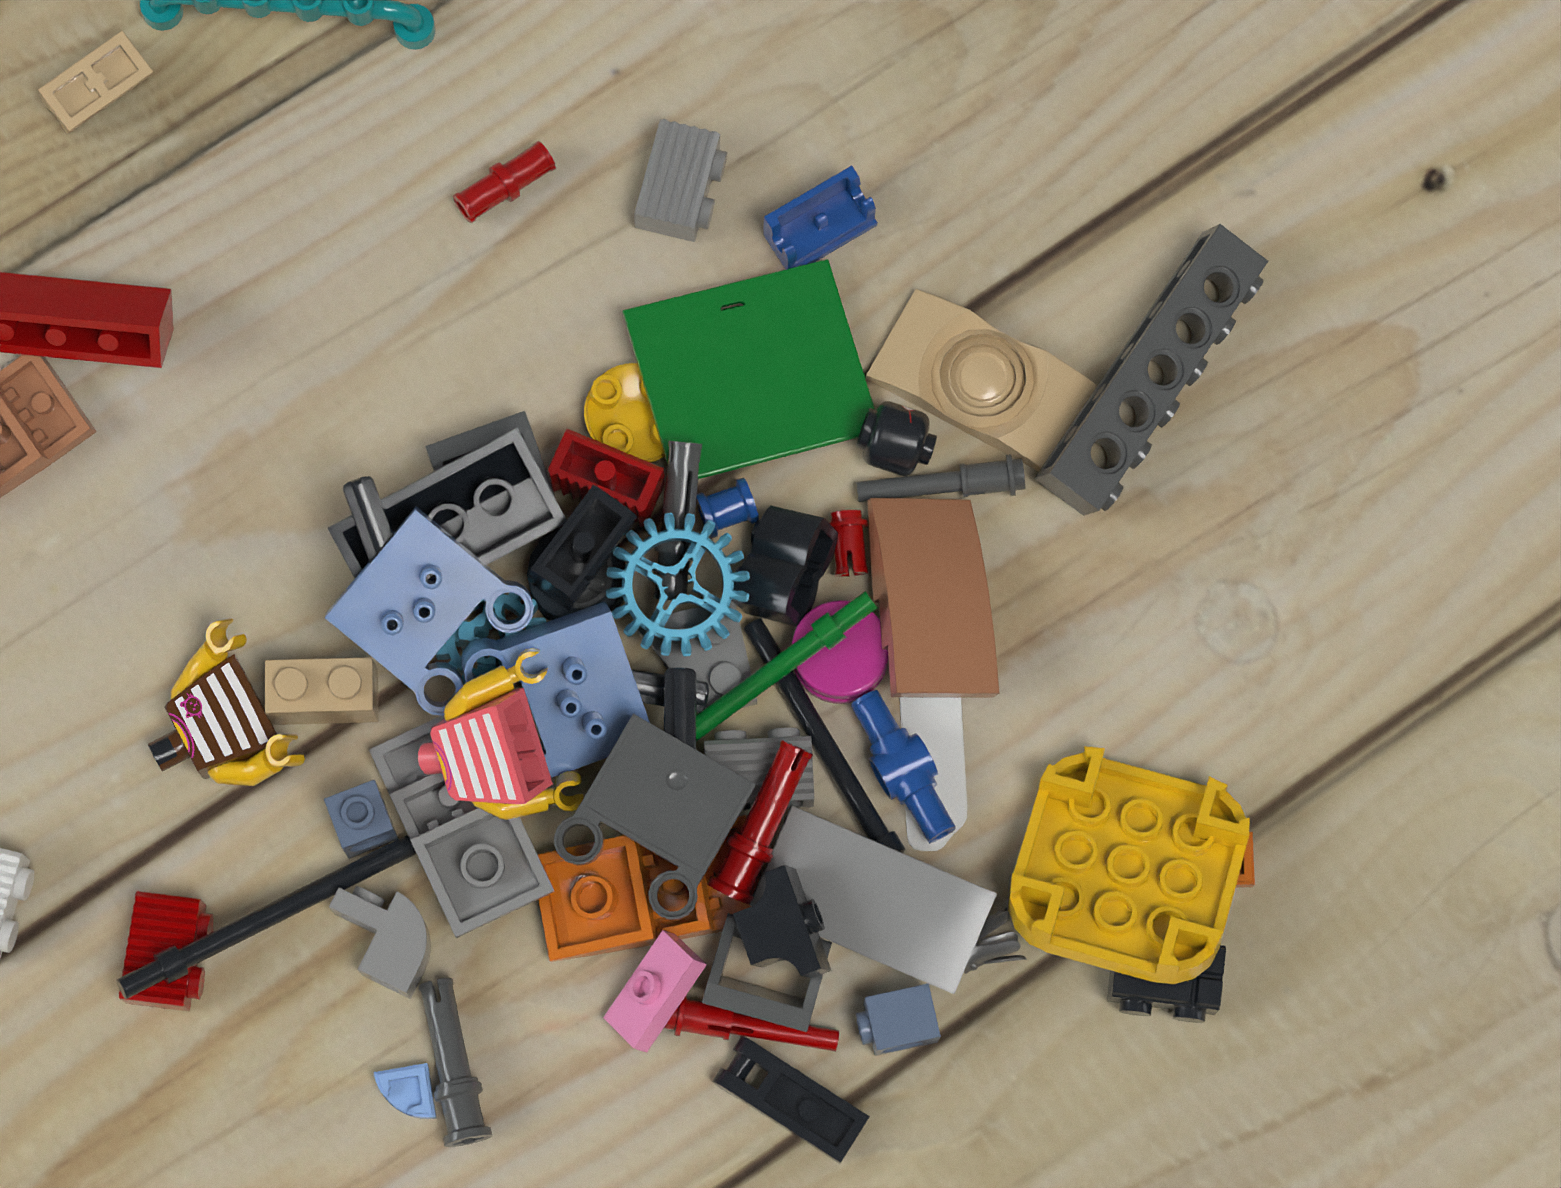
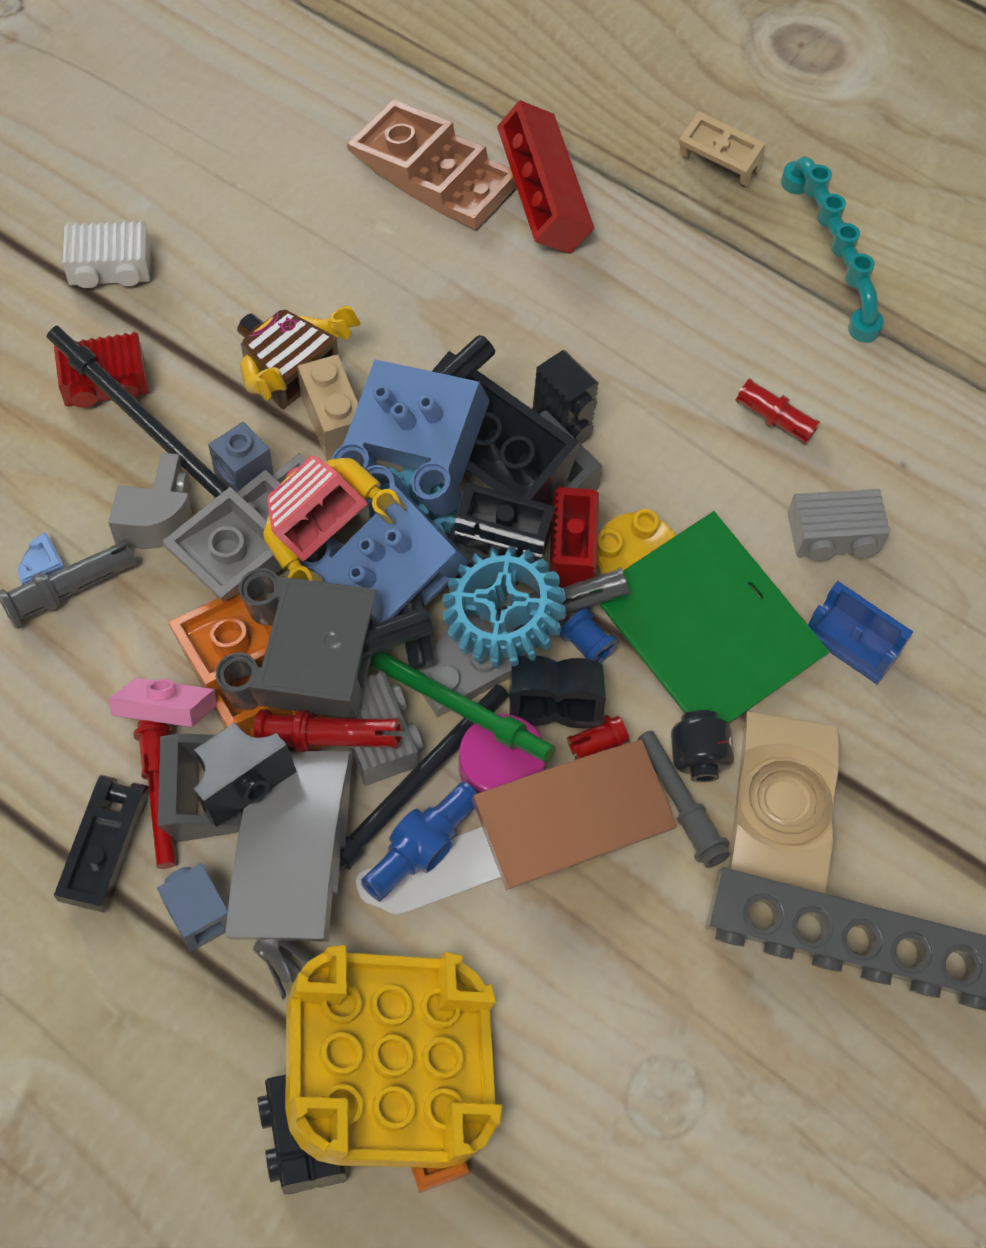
camera: 70 degrees right, 15 degrees down
(420, 416) = (567, 394): none -> black brick

